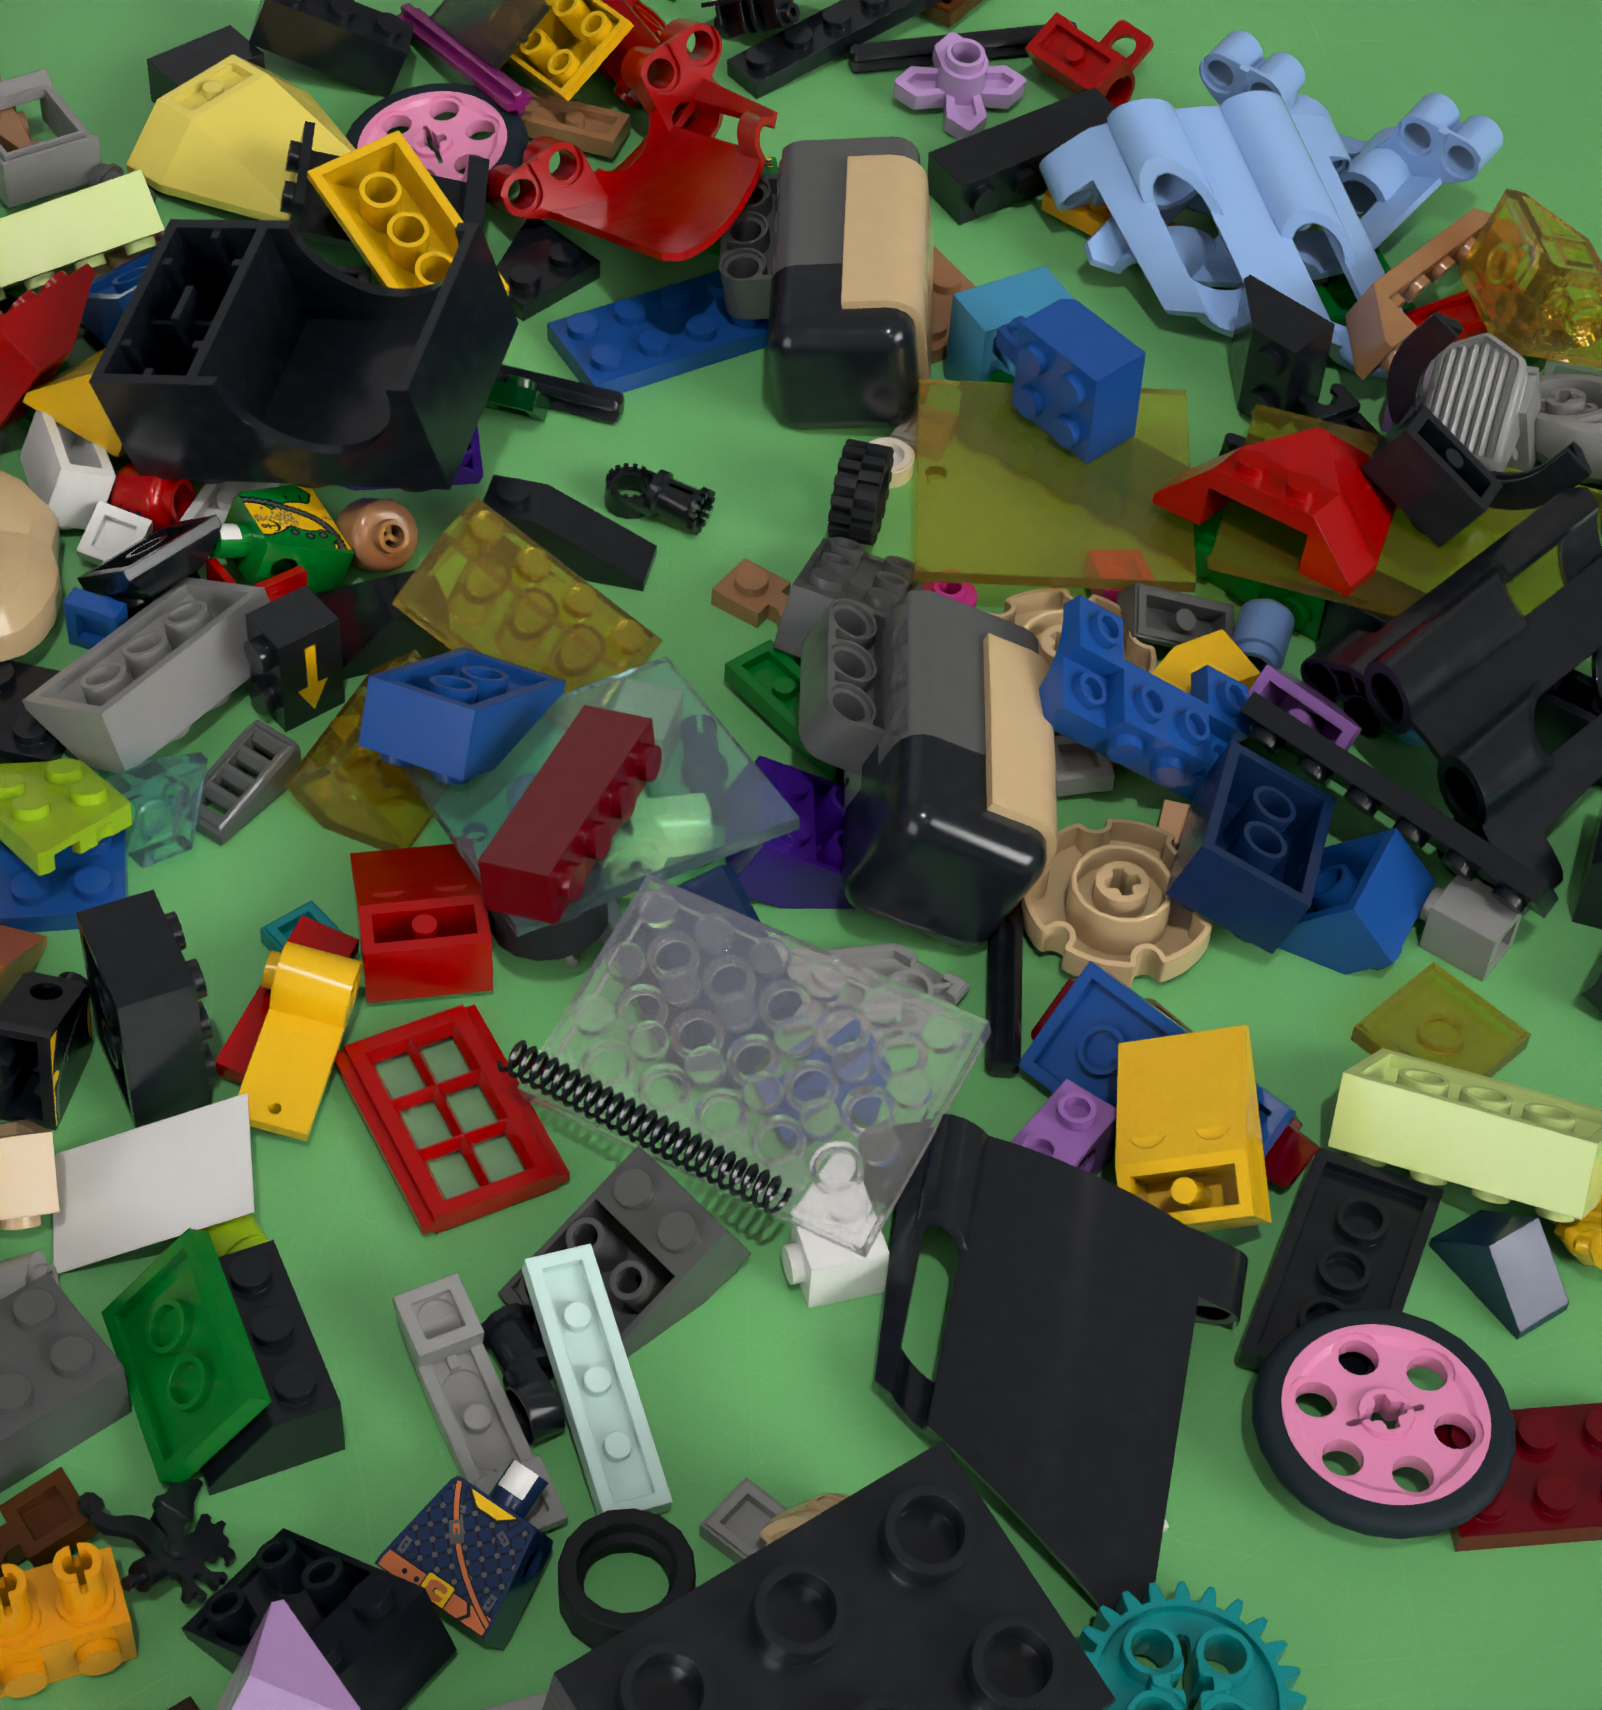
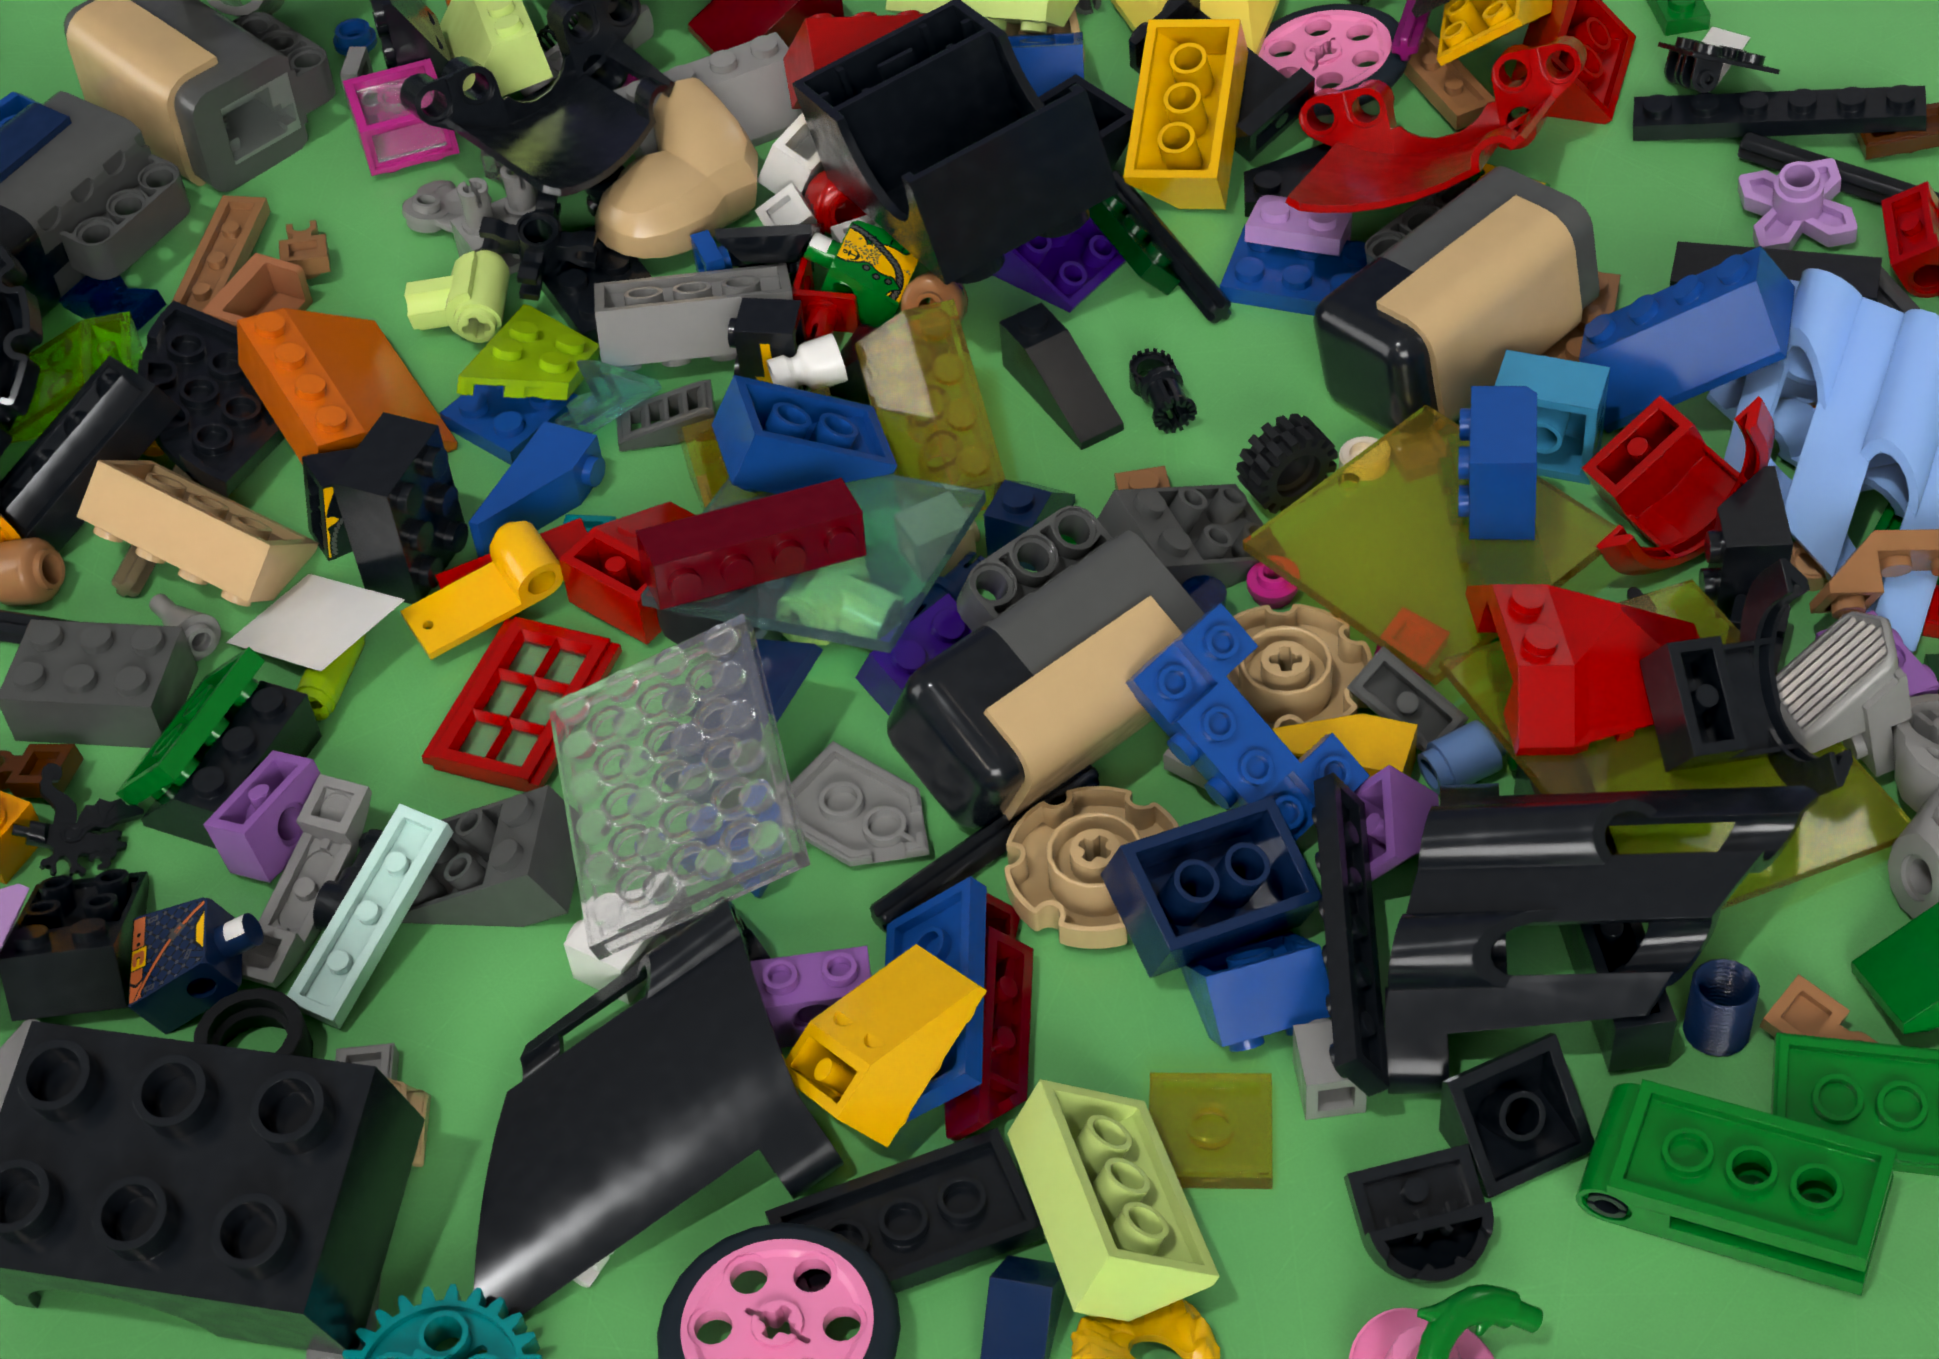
camera: 55 degrees right, 0 degrees up
(206, 891) = (542, 483): none -> blue slope
(367, 643) = (815, 365): none -> white piece
(374, 1375) = (258, 821): none -> medium lavender brick
(610, 295) = (1286, 227): none -> lavender slope
(670, 1133) = (548, 812): black piece -> none
(707, 665) = (1019, 508): none -> dark blue slope
(1064, 206) = (1692, 335): none -> blue slope
(1179, 333) = (1670, 484): none -> red piece

